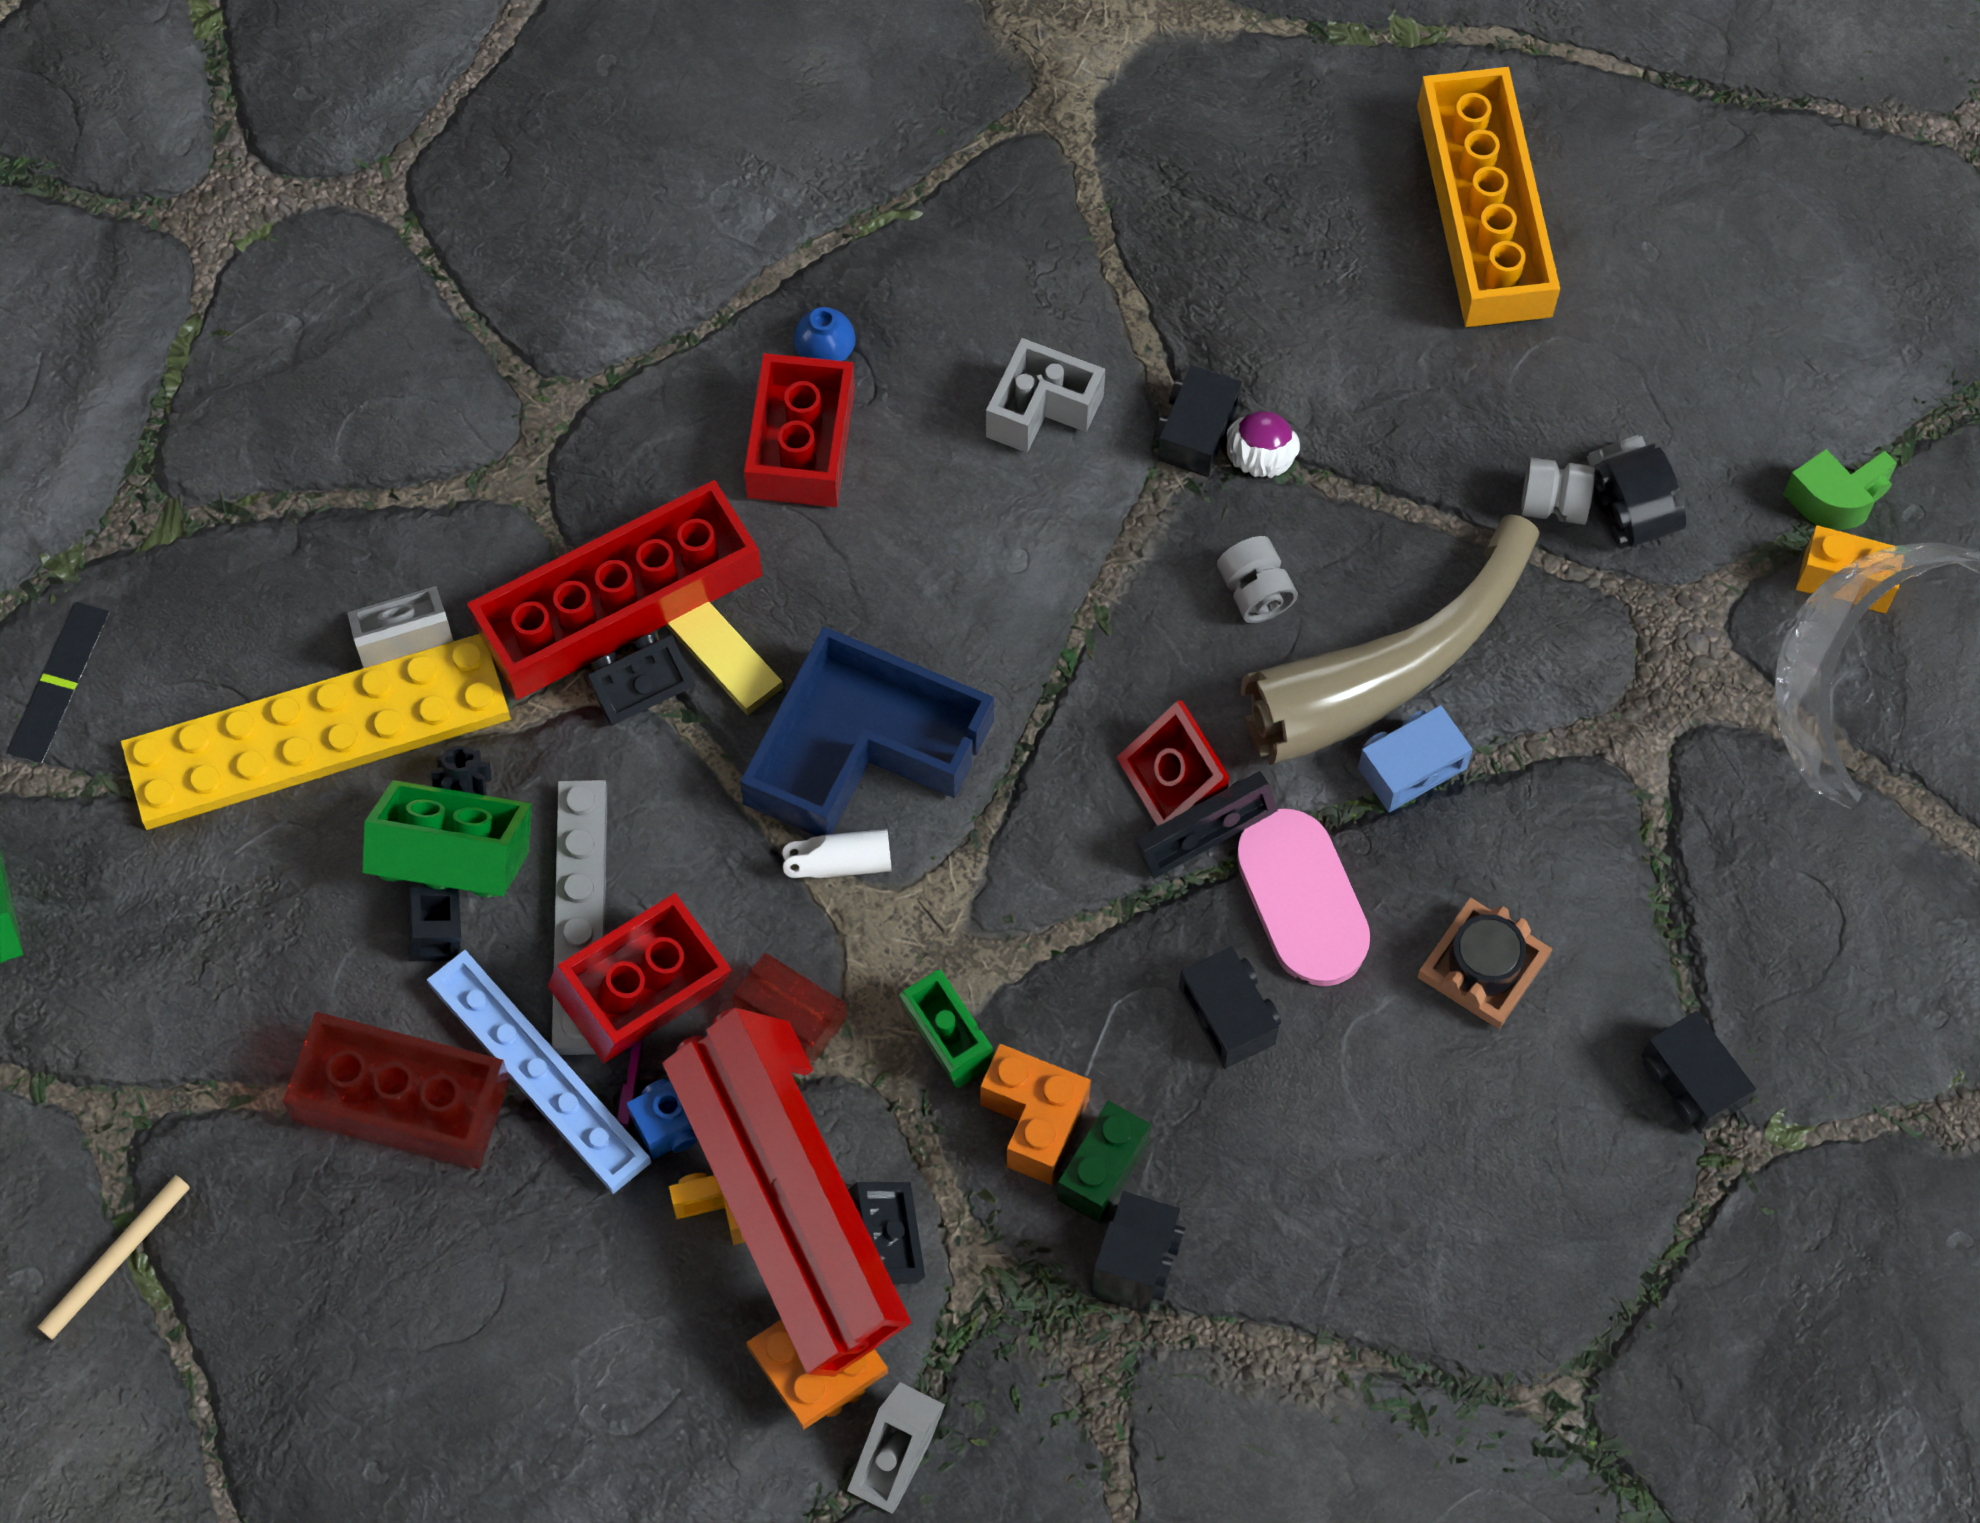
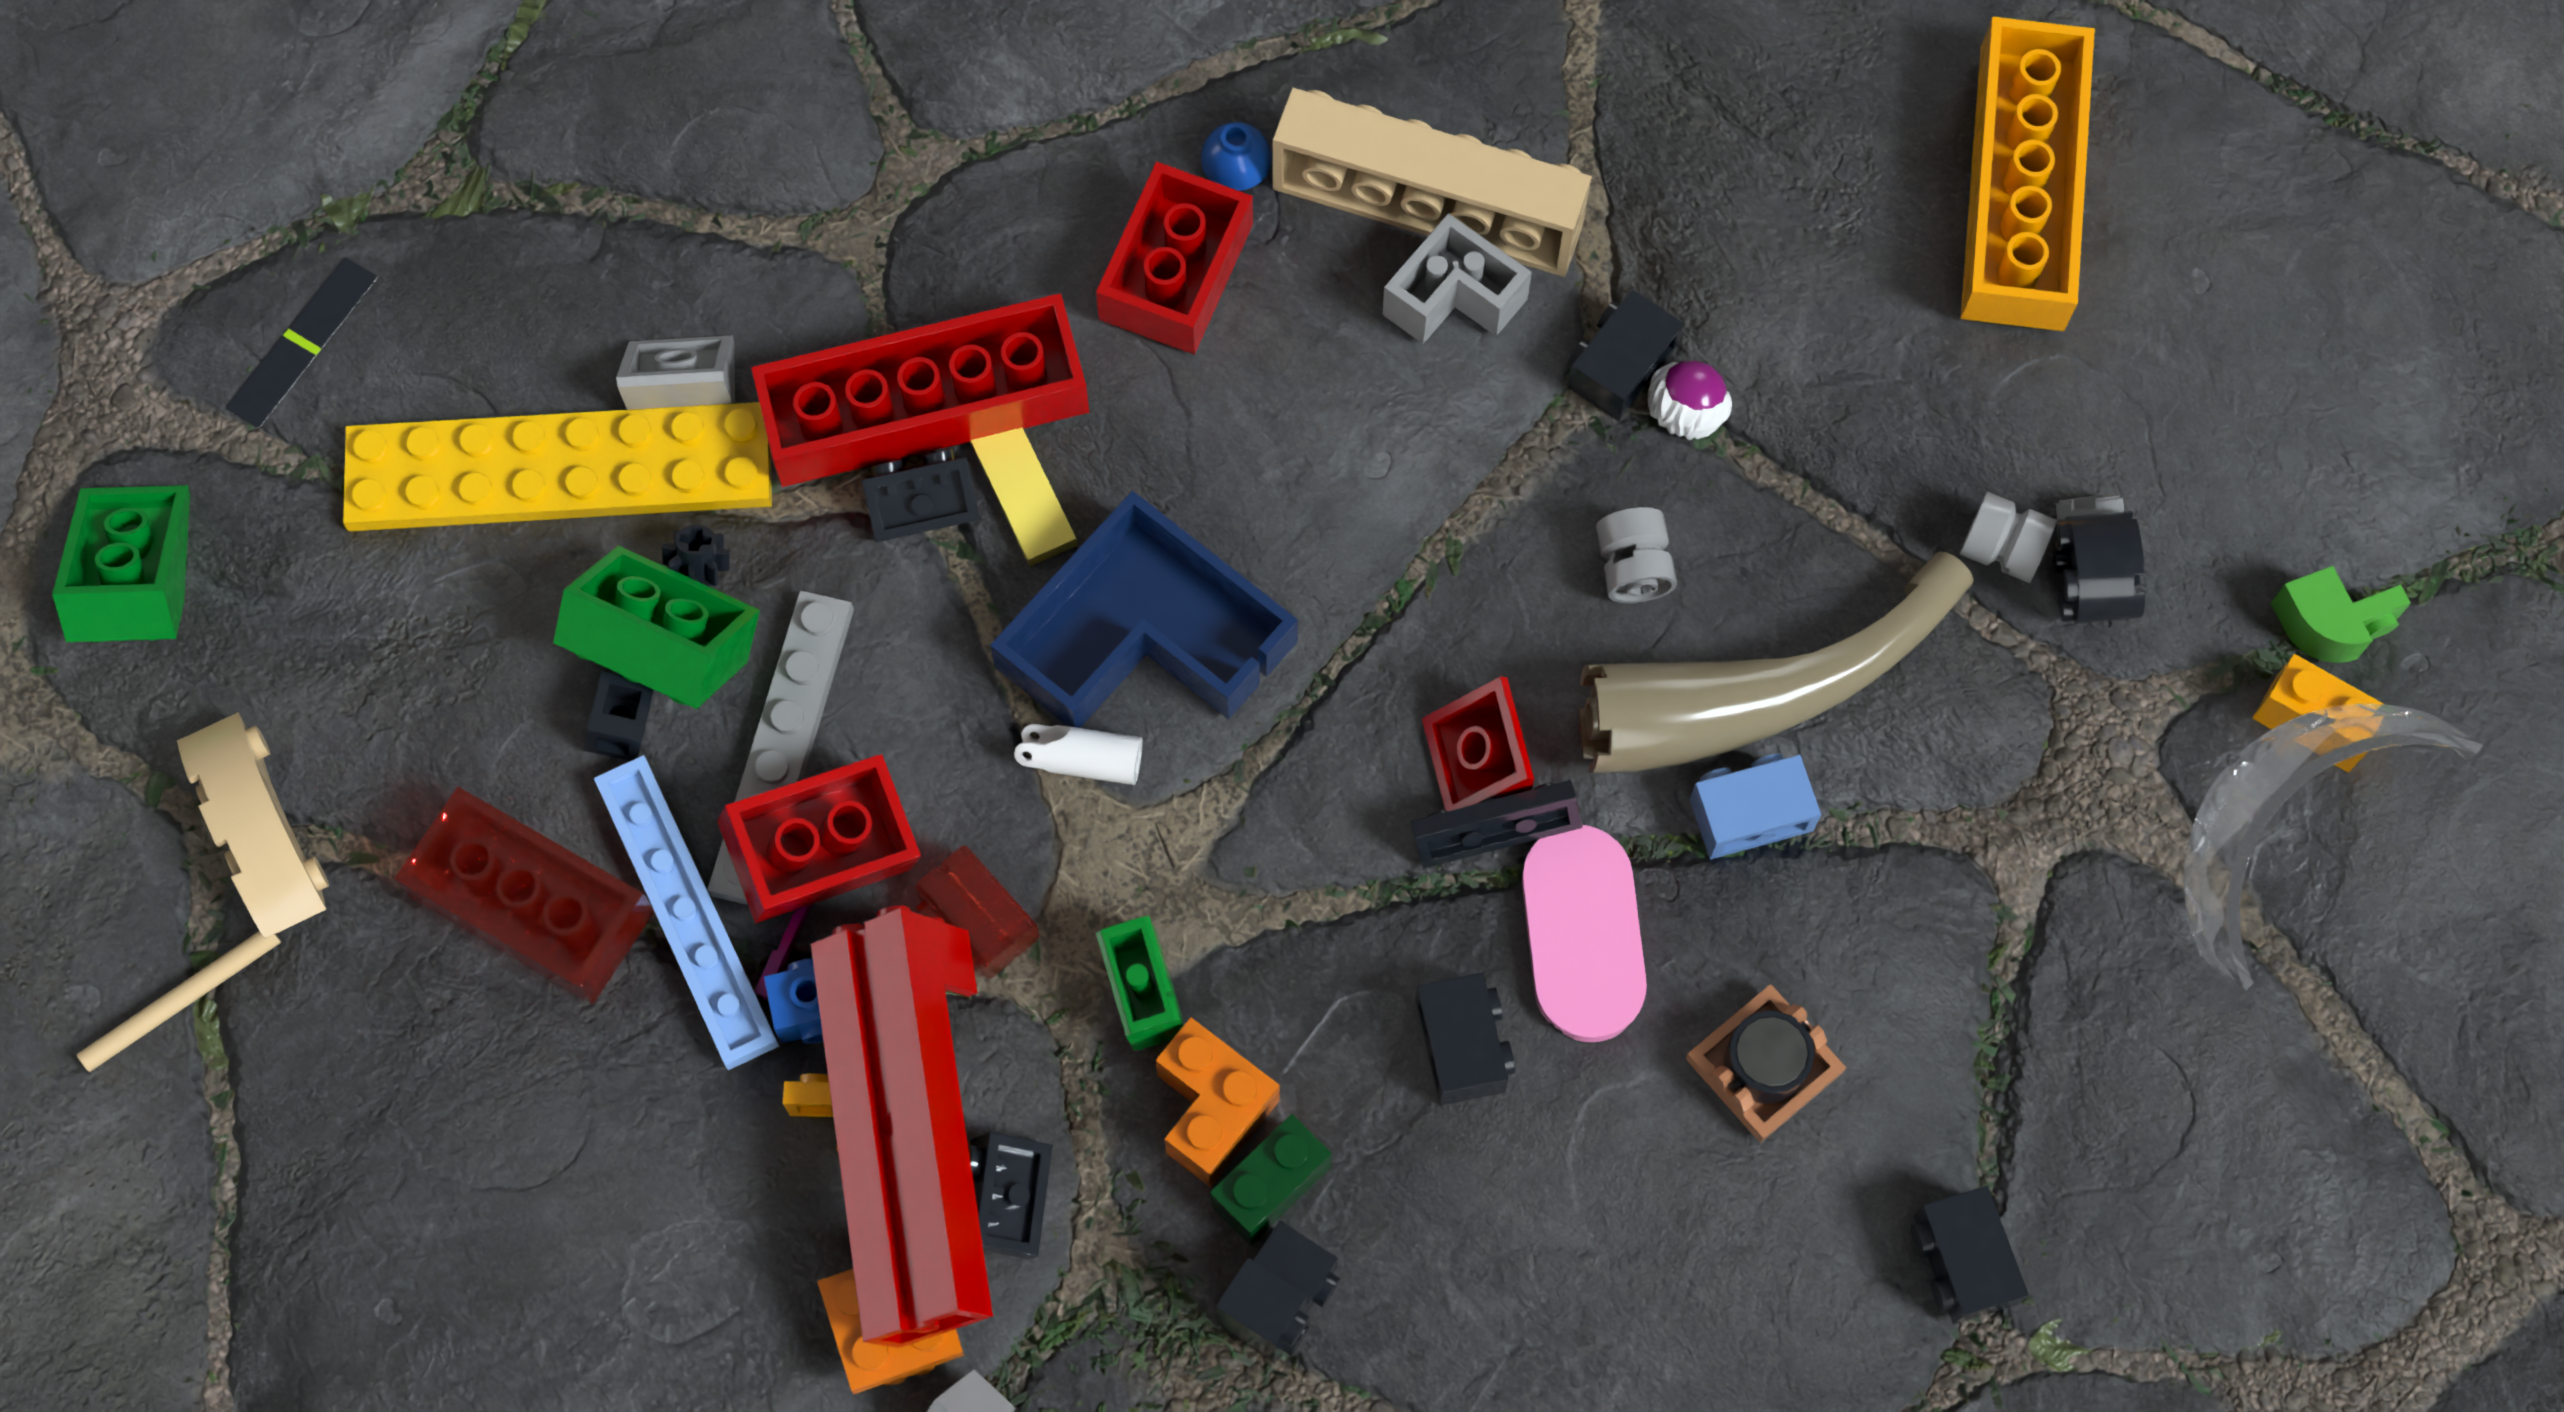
camera: 15 degrees right, 5 degrees up
(131, 1081) = (245, 813): none -> tan brick
(985, 313) = (1418, 175): none -> tan brick

